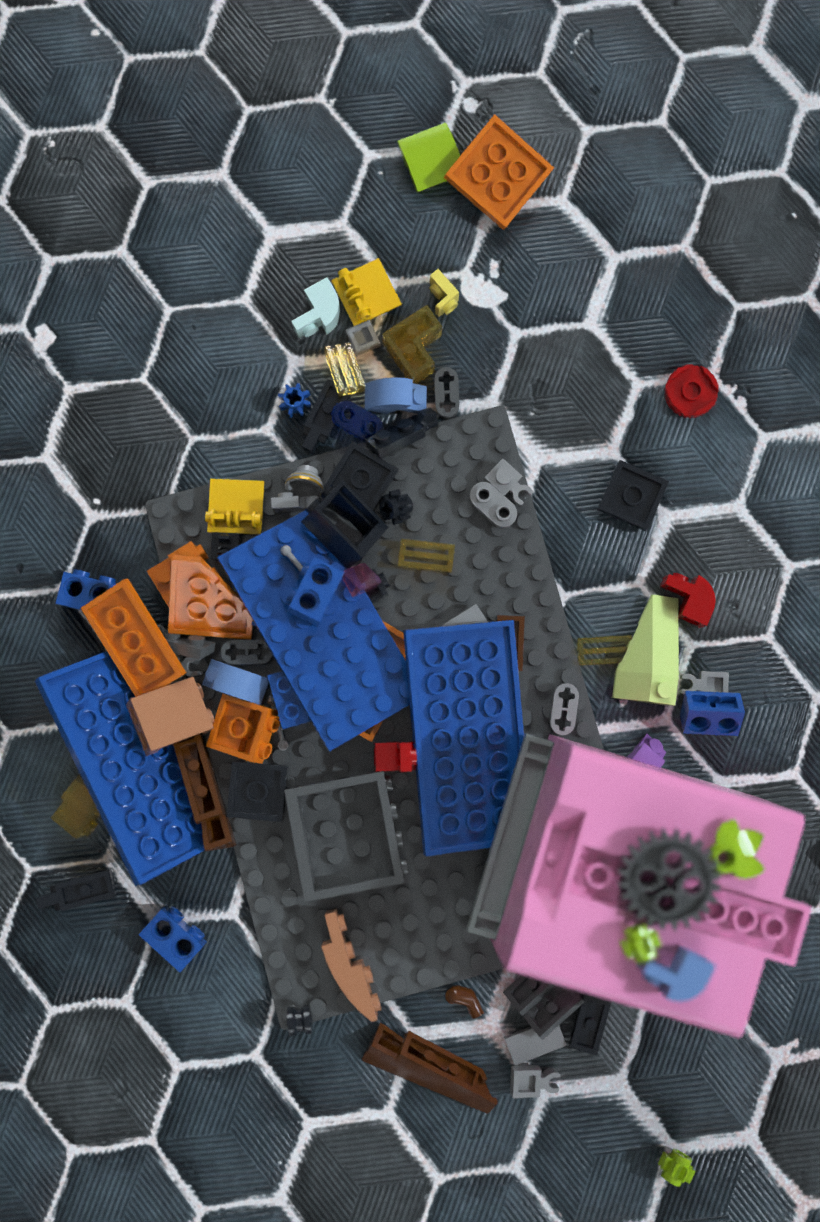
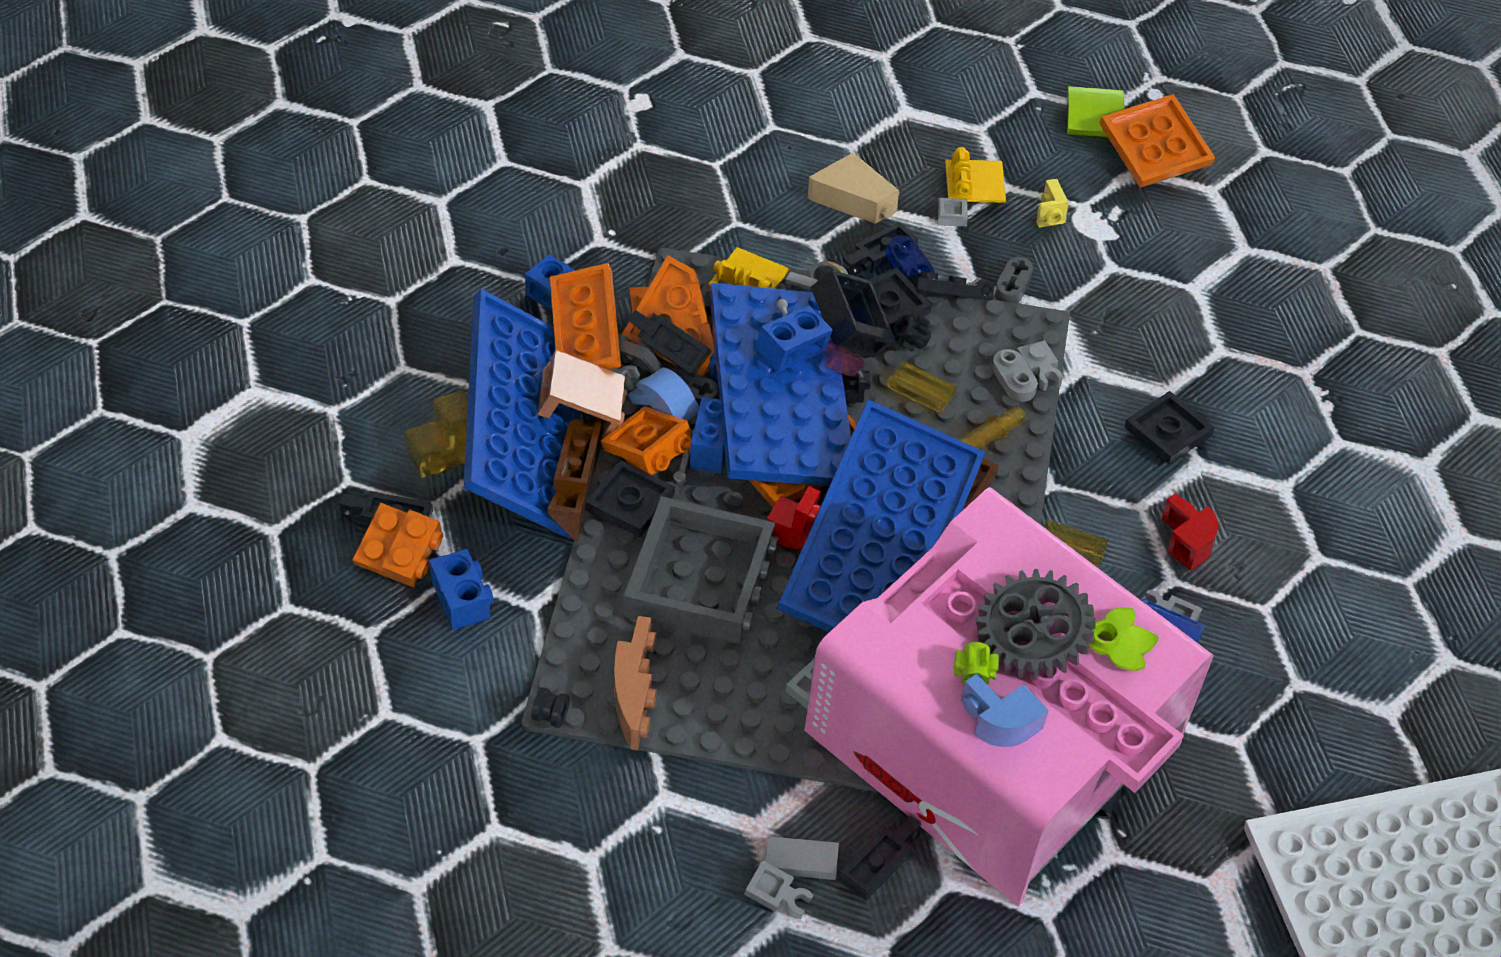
camera: 25 degrees right, 35 degrees down
(105, 924) = (399, 544): none -> orange plate
(212, 629) = (671, 342): none -> black hinge
(274, 358) = (854, 190): none -> tan slope
(290, 394) = (856, 225): blue gear -> none
(324, 310) = (922, 174): light aqua brick -> none
(340, 351) = (922, 213): clear yellow tile -> none
(395, 394) = (960, 251): medium blue brick -> none
(407, 343) = (1000, 221): clear yellow brick -> none
(429, 1067) = (663, 826): reddish brown wedge -> none
(464, 996) = (740, 774): reddish brown arm -> none
(504, 575) = (995, 428): none -> clear yellow pin
(542, 1003) = (834, 815): dark grey slope -> none
(652, 657) = (1132, 553): yellowish green wedge -> none
(691, 391) = (1276, 375): red tile -> none

